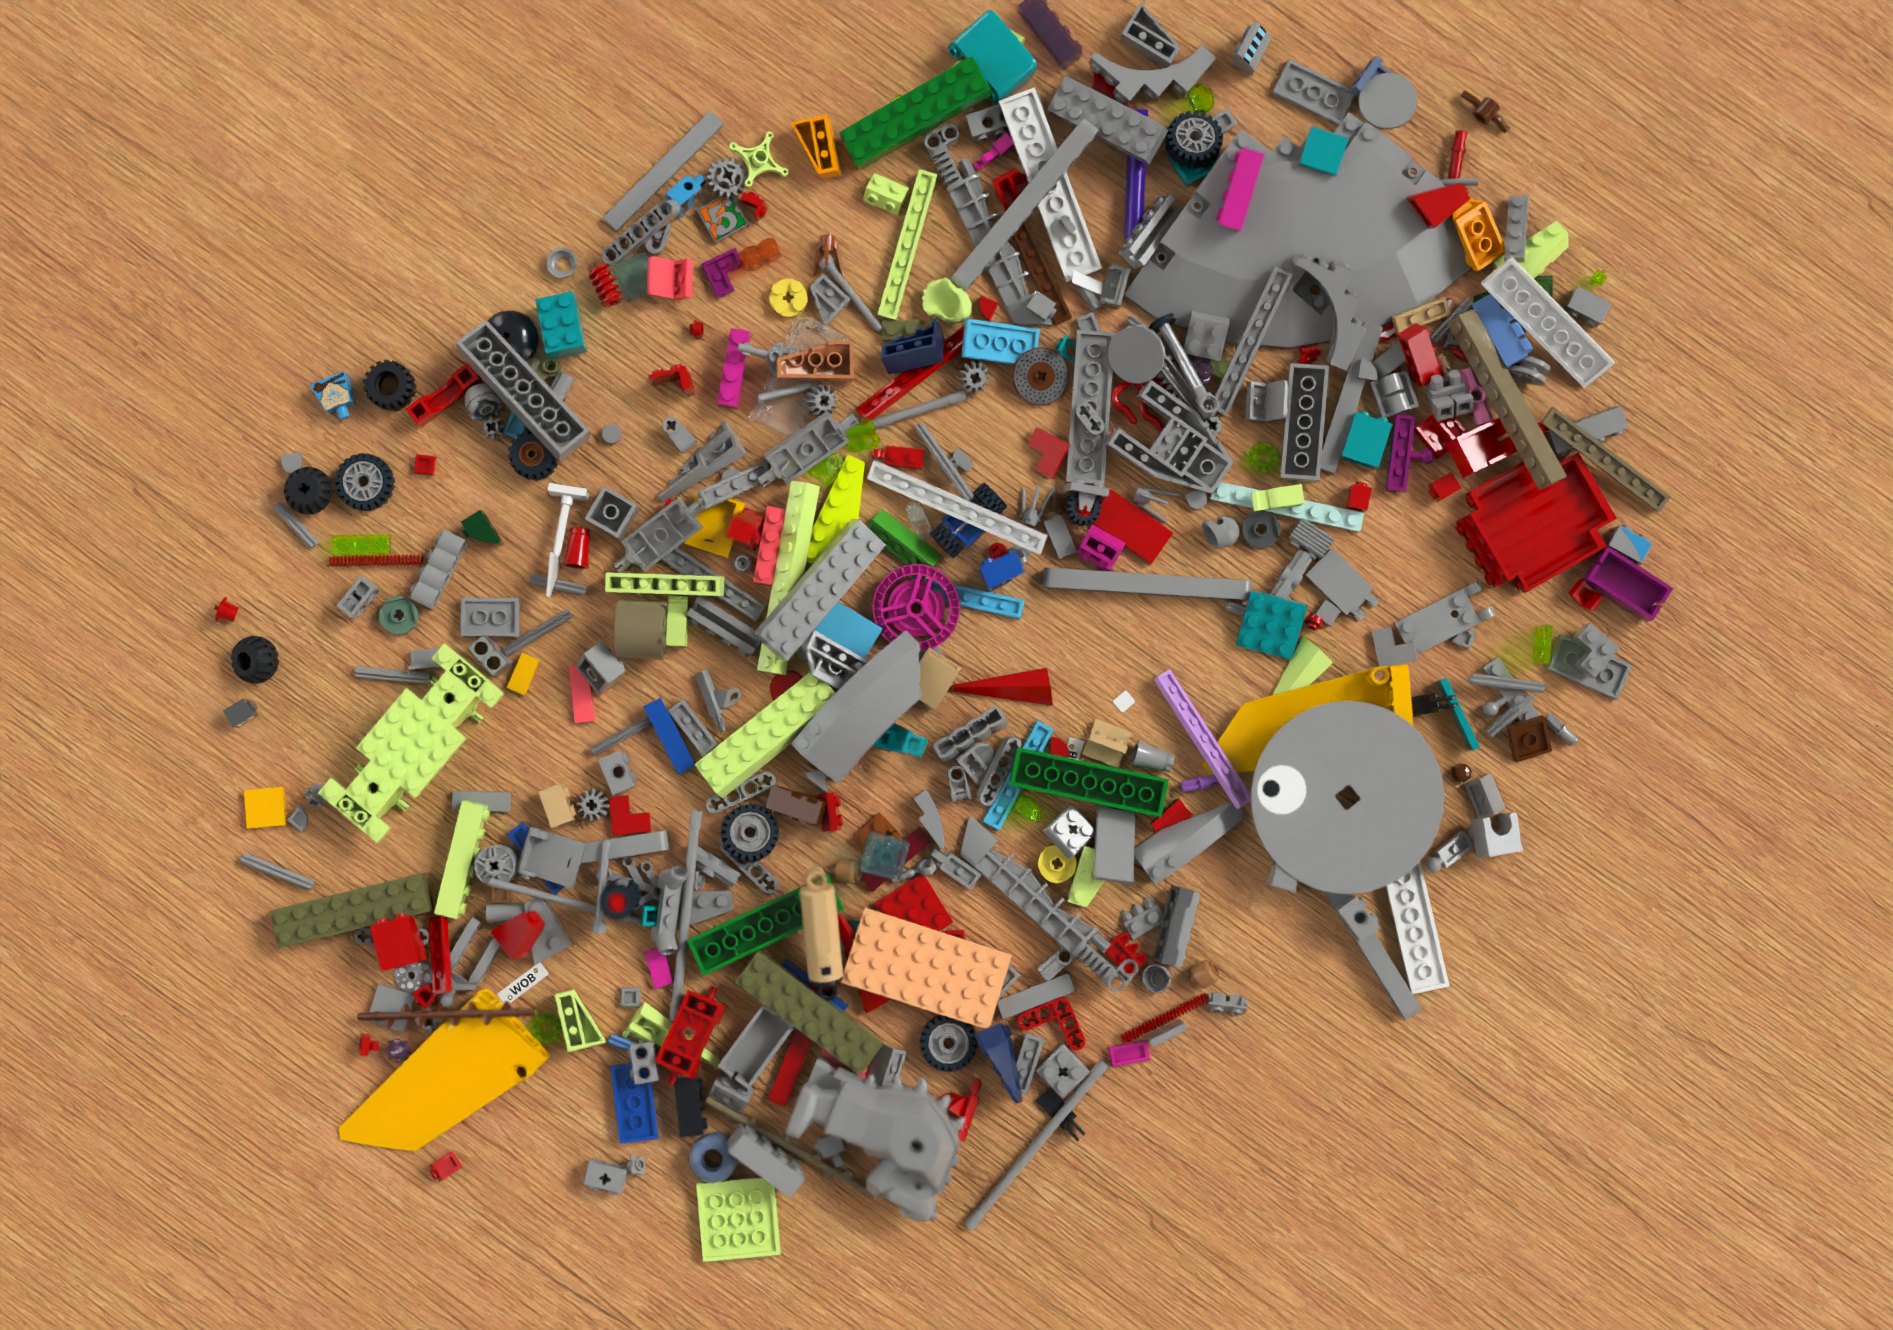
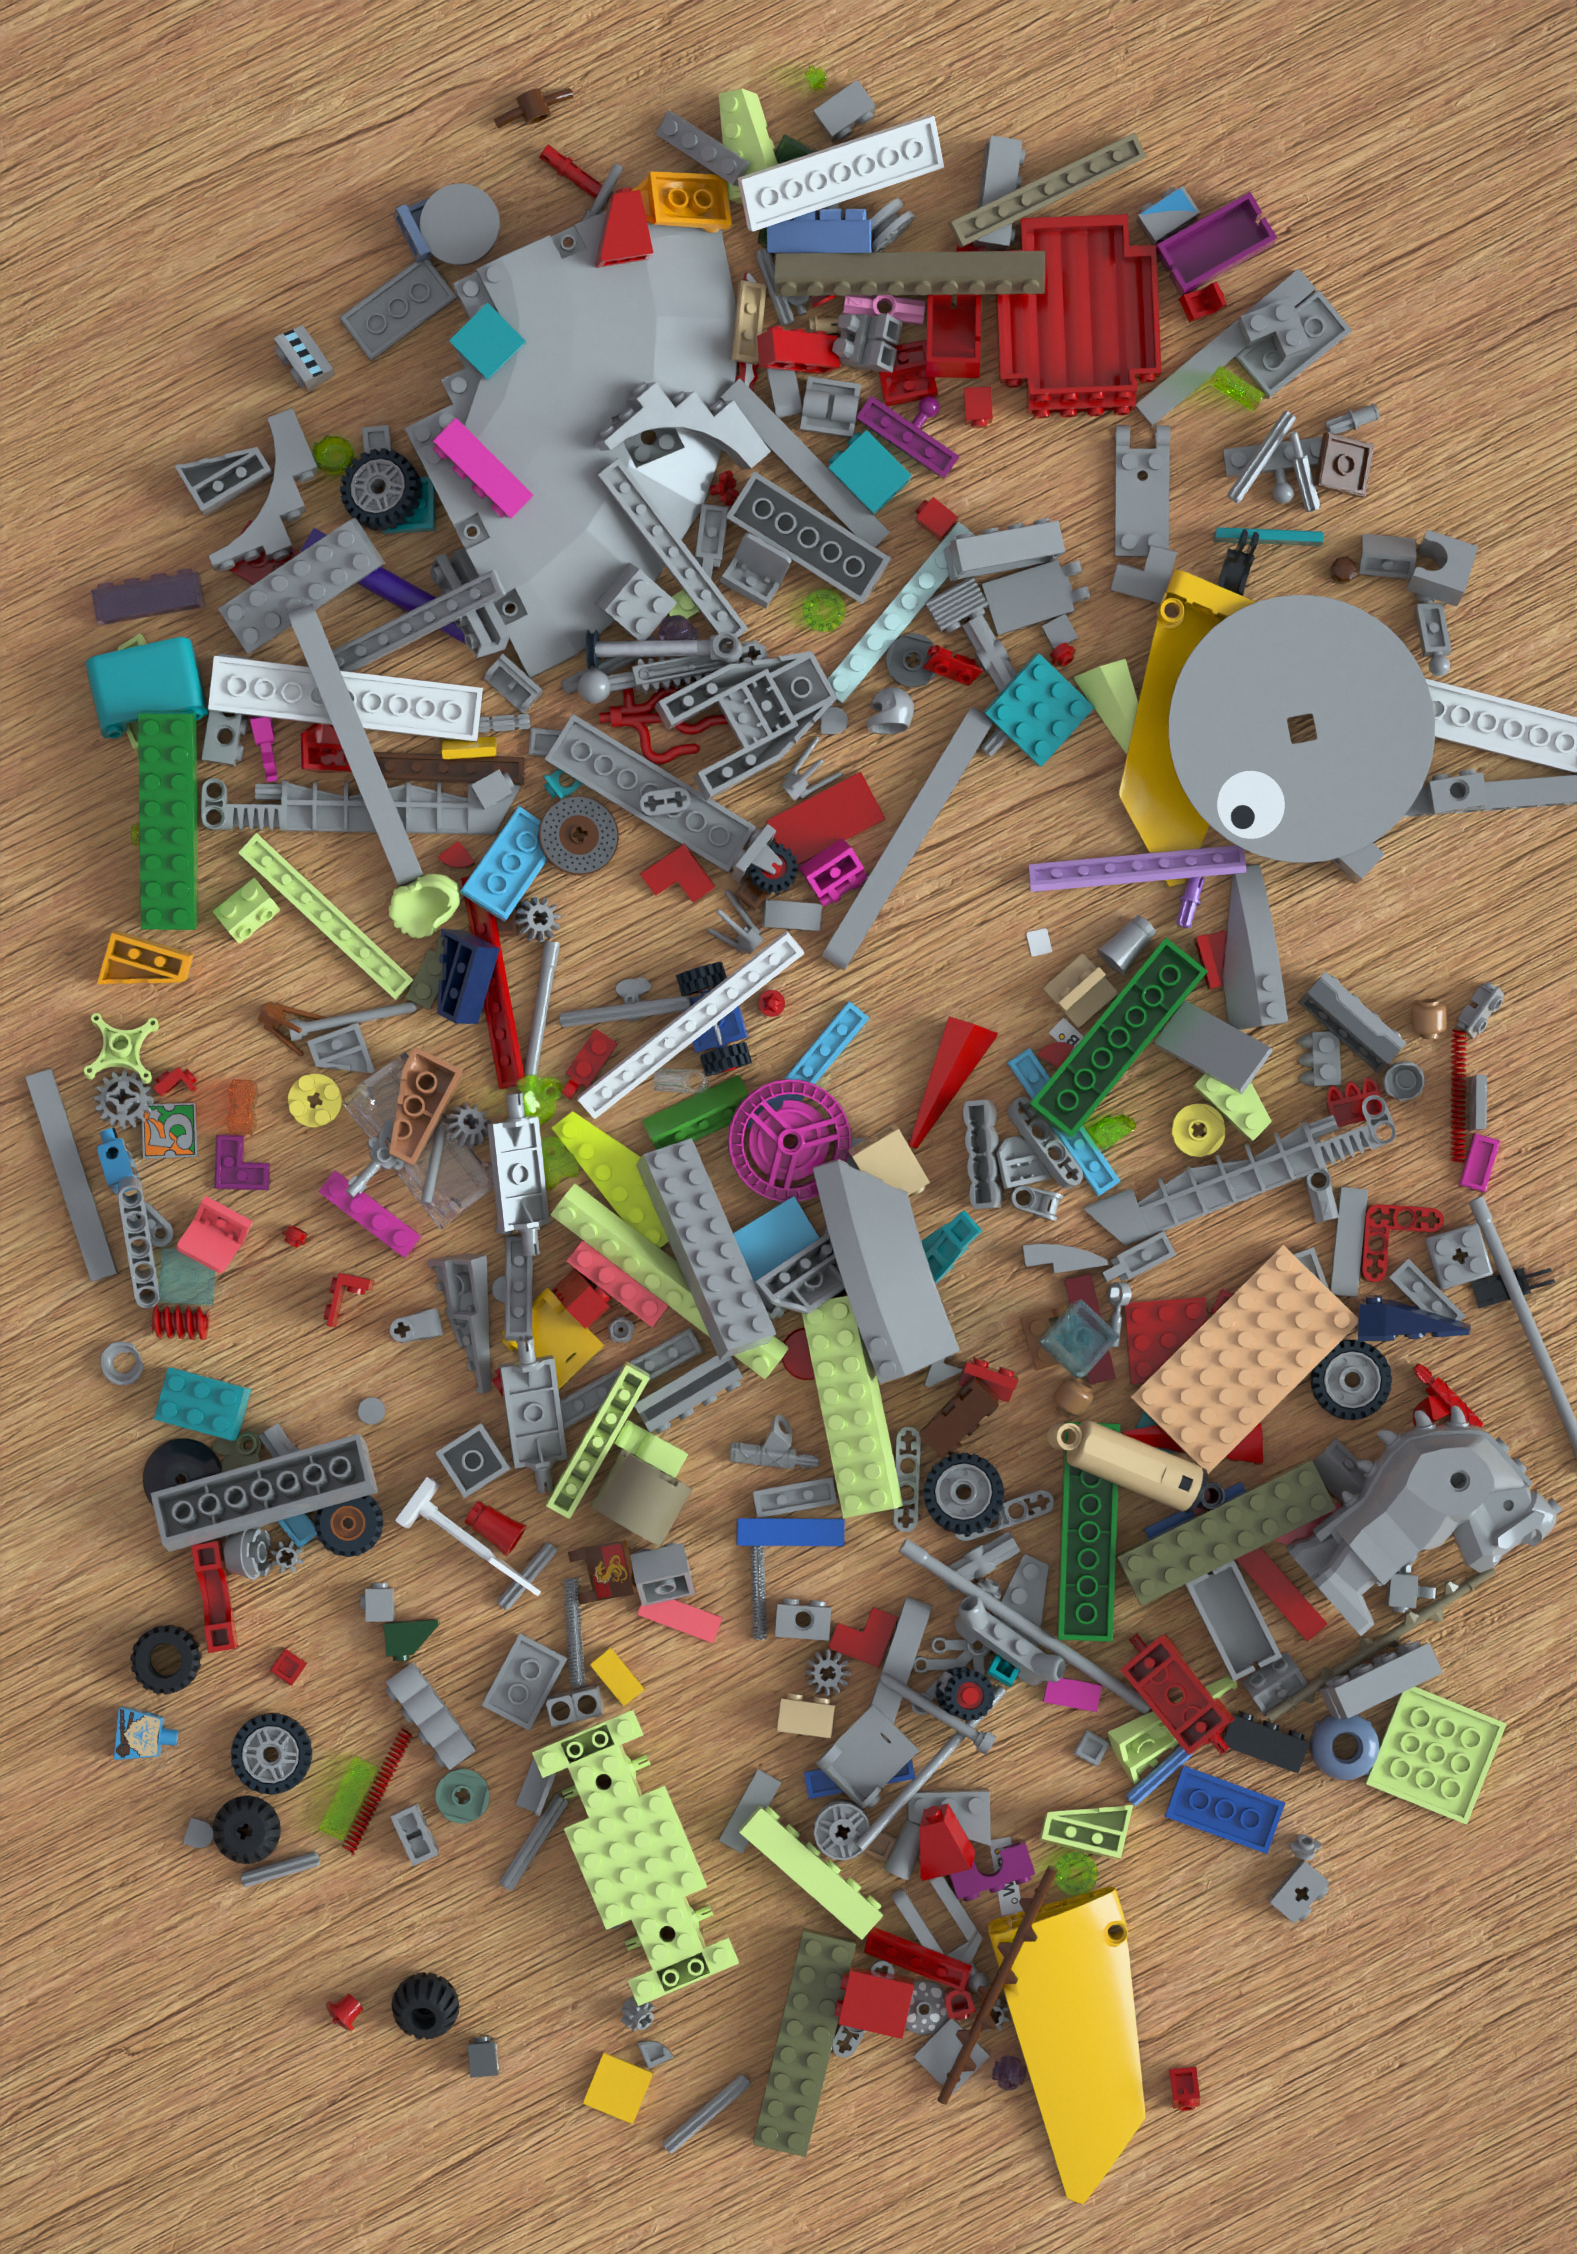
camera: 65 degrees left, 0 degrees up
(367, 1044) = (981, 2109): red tile -> none
(493, 500) = (378, 1602): none -> light grey brick
(530, 987) = (1015, 1866): none -> magenta arch
(585, 632) = (608, 1571): none -> flag
(648, 1062) = (1184, 1764): light grey brick -> none
(1000, 571) = (800, 1011): blue wedge -> none
(1021, 552) = (790, 980): light grey gear -> none
(1058, 278) = (469, 749): none -> yellow tile
(1068, 226) = (410, 703): light grey tile -> none
(1081, 831) = (1162, 1107): brick -> none
(1087, 282) = (491, 716): white sticker -> none
(1122, 205) = (420, 622): none -> light grey tile
(1136, 354) = (616, 702): light grey tile -> none
(1270, 560) = (958, 668): none -> red hinge
(1272, 362) = (711, 537): none -> light grey hinge
(1277, 498) = (885, 620): yellowish green piece -> none
(1361, 549) = (1004, 550): none -> light grey piece
(1367, 370) = (784, 426): light grey tile -> none
(1464, 639) = (1179, 479): light grey tile -> none
(1561, 623) = (1217, 352): none -> light grey tile

